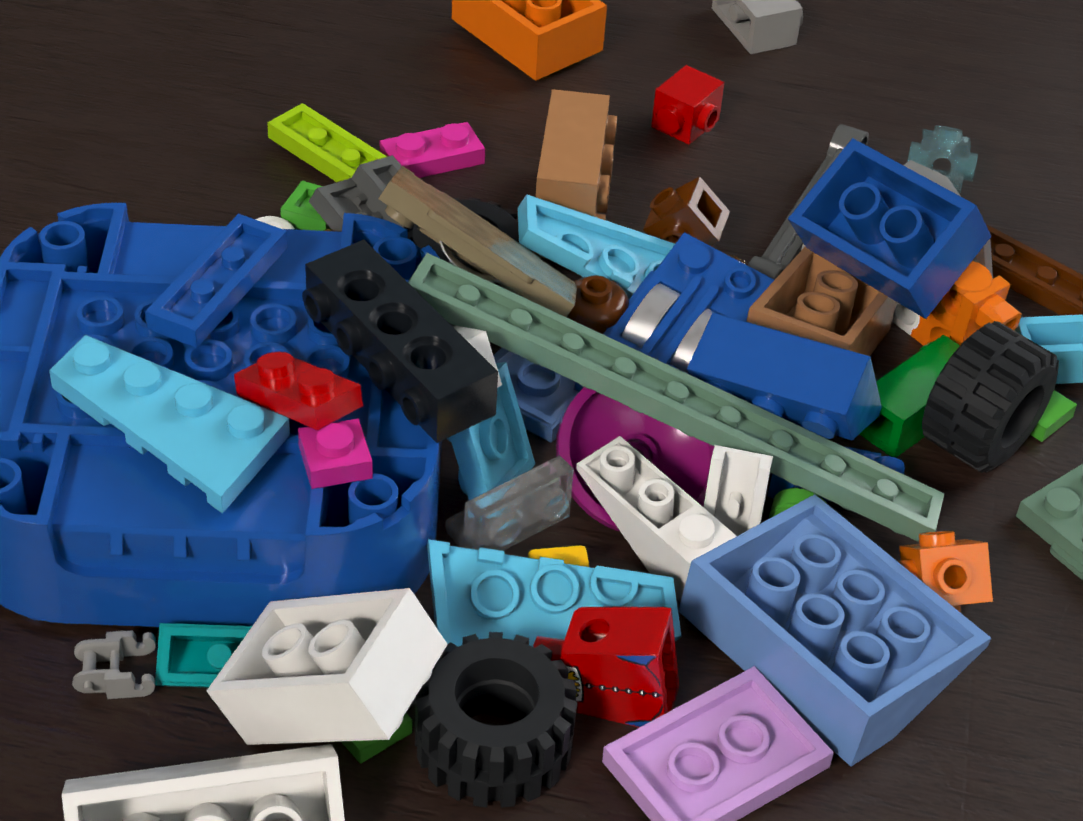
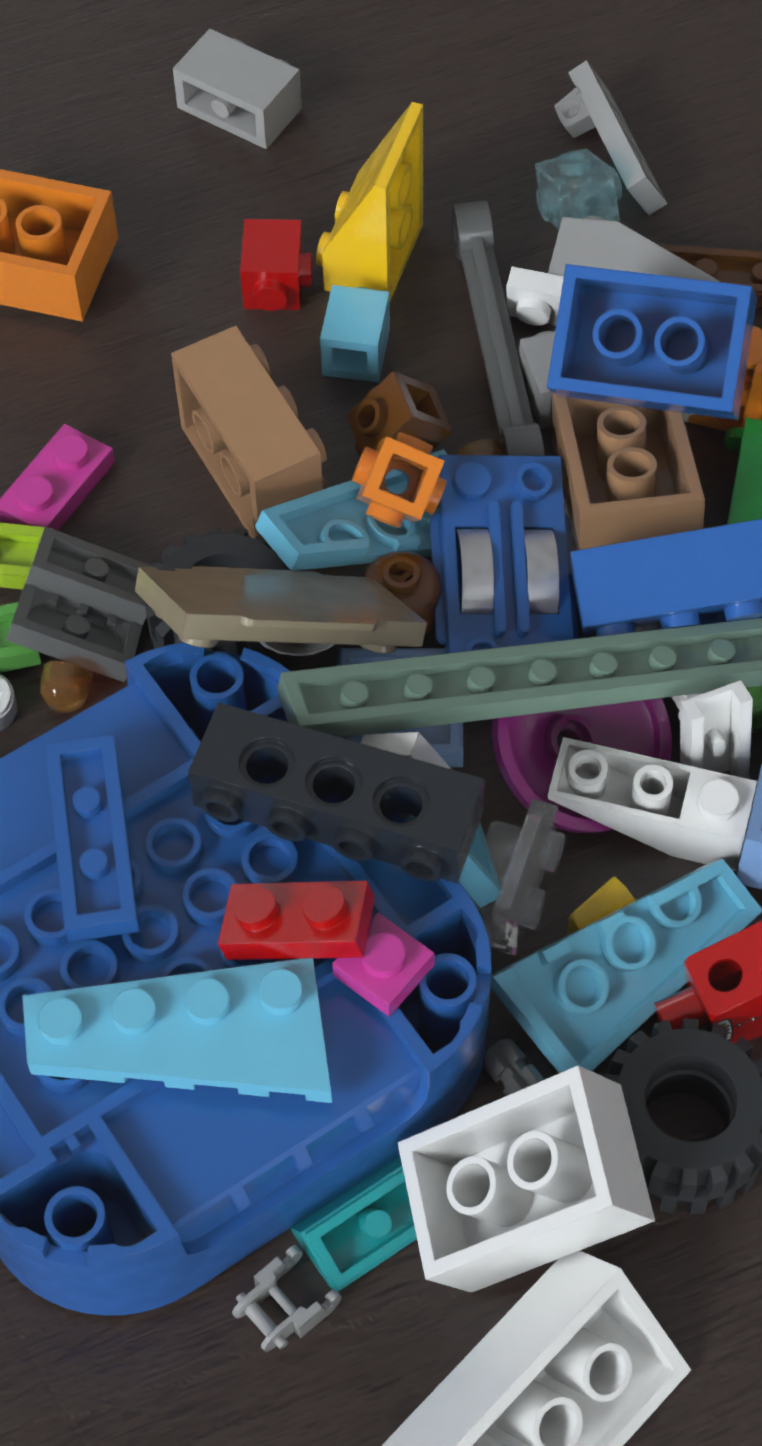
camera: 30 degrees left, 15 degrees up
(638, 226) = (422, 474): none -> orange brick
(713, 157) = (355, 333): none -> medium azure brick
(781, 99) = (380, 214): none -> yellow slope
(1005, 135) = (594, 106): none -> light grey hinge

